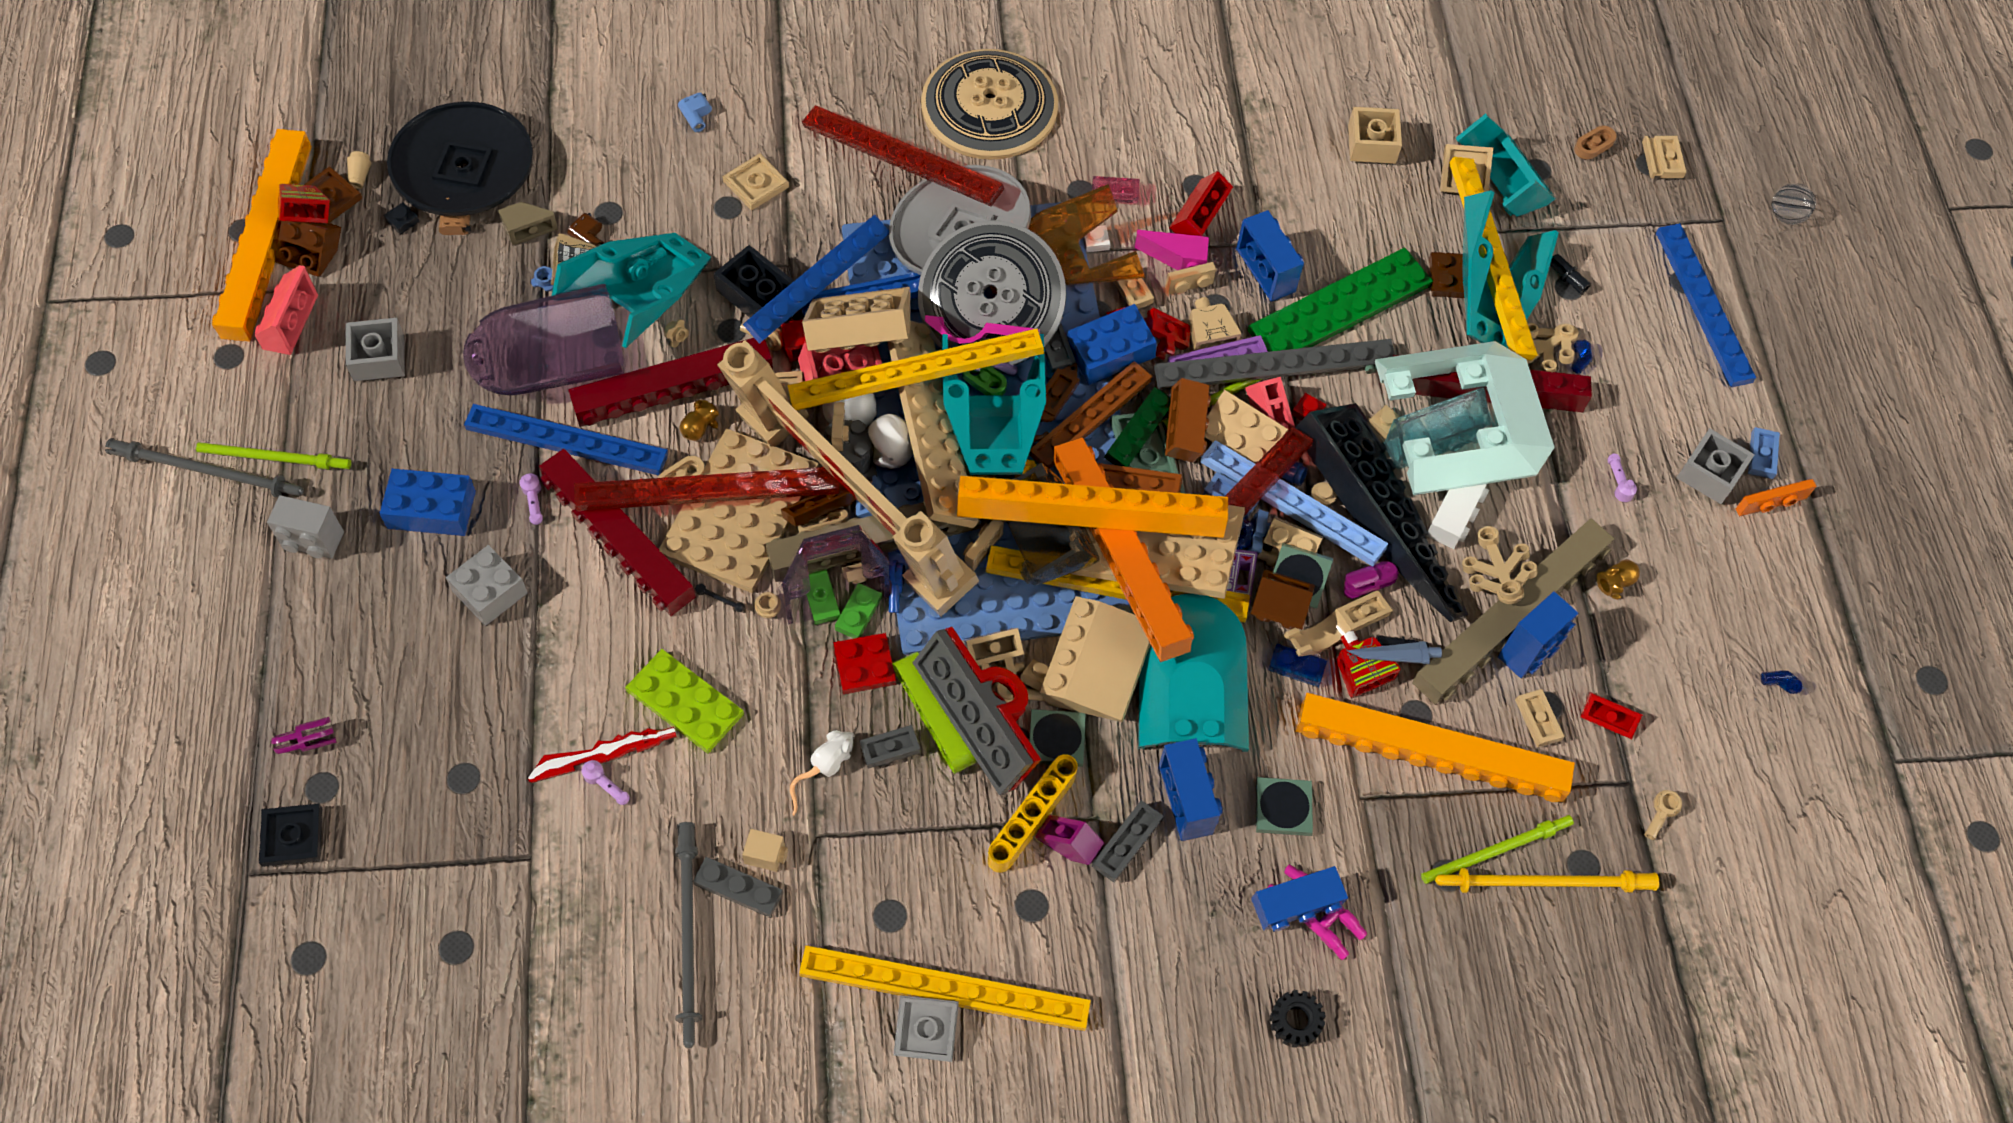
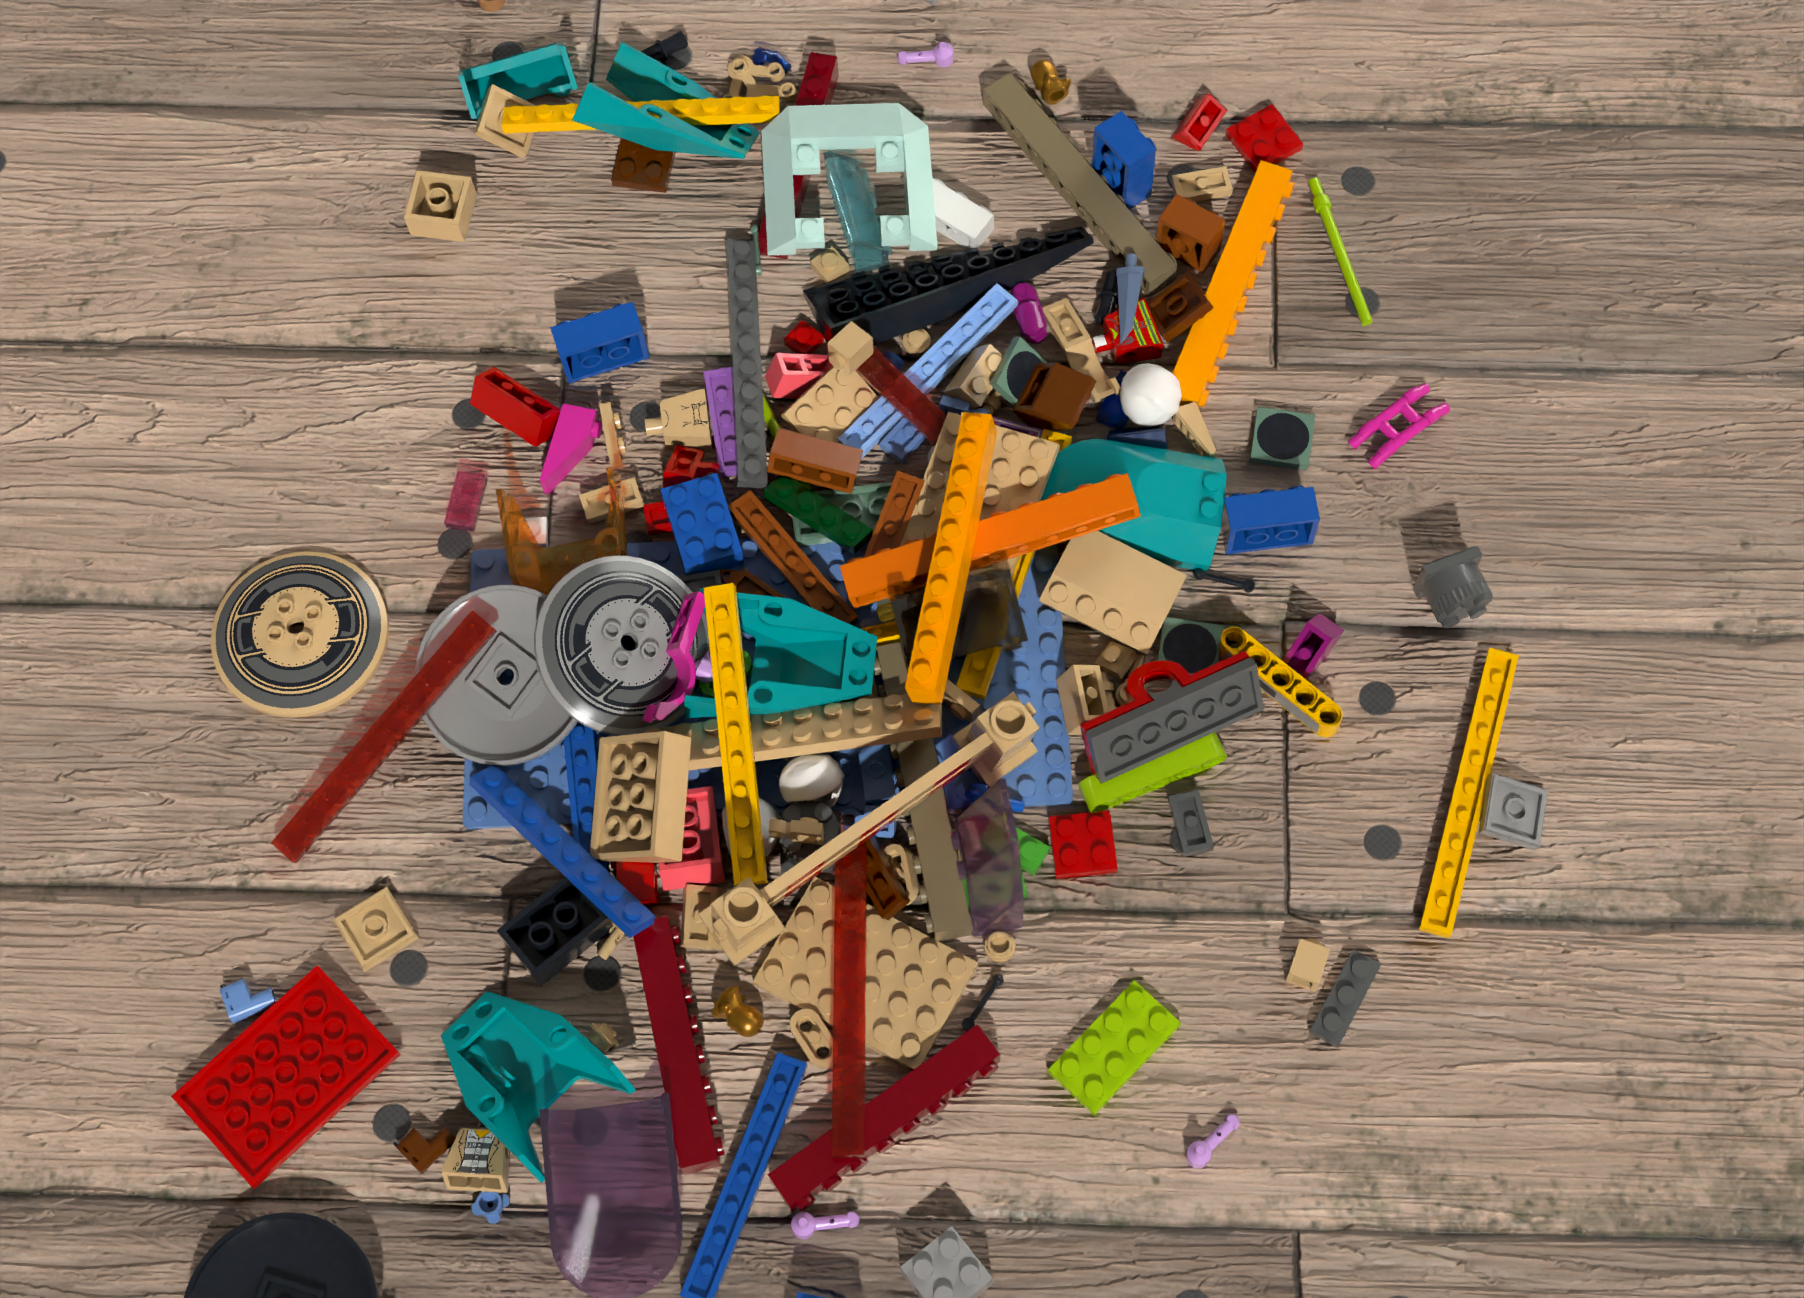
camera: 75 degrees left, 5 degrees up
(526, 222) = (396, 1228): dark tan slope -> none
(603, 751) = (1171, 1143): red sword -> none
(639, 142) = (285, 1076): none -> red plate
(686, 853) = (1306, 1050): dark grey bar -> none
(826, 758) = (1200, 892): white animal -> none
(1127, 841) = (1314, 591): dark grey plate -> none
(1128, 785) = (1248, 585): none -> black hinge
(1144, 960) = (1454, 587): none -> dark grey piece
(1260, 684) = (1144, 436): none -> dark blue slope
(1280, 724) = (1194, 429): none -> tan slope
(1290, 1034) = (1513, 444): black tyre -> none
(1291, 426) = (850, 348): none -> tan brick
(1298, 676) = (1150, 395): none -> white piece
(1299, 899) = (1397, 432): blue brick -> none
(1343, 303) = (668, 284): green plate -> none
(1397, 698) = (1178, 306): none -> reddish brown plate
(1480, 703) = (1190, 233): none -> dark orange brick
(1508, 590) = (1034, 185): tan plant -> none
(1607, 773) = (1264, 138): none -> red plate
(1626, 881) = (1380, 144): yellow bar -> none
(1667, 805) = (1302, 93): tan plate -> none

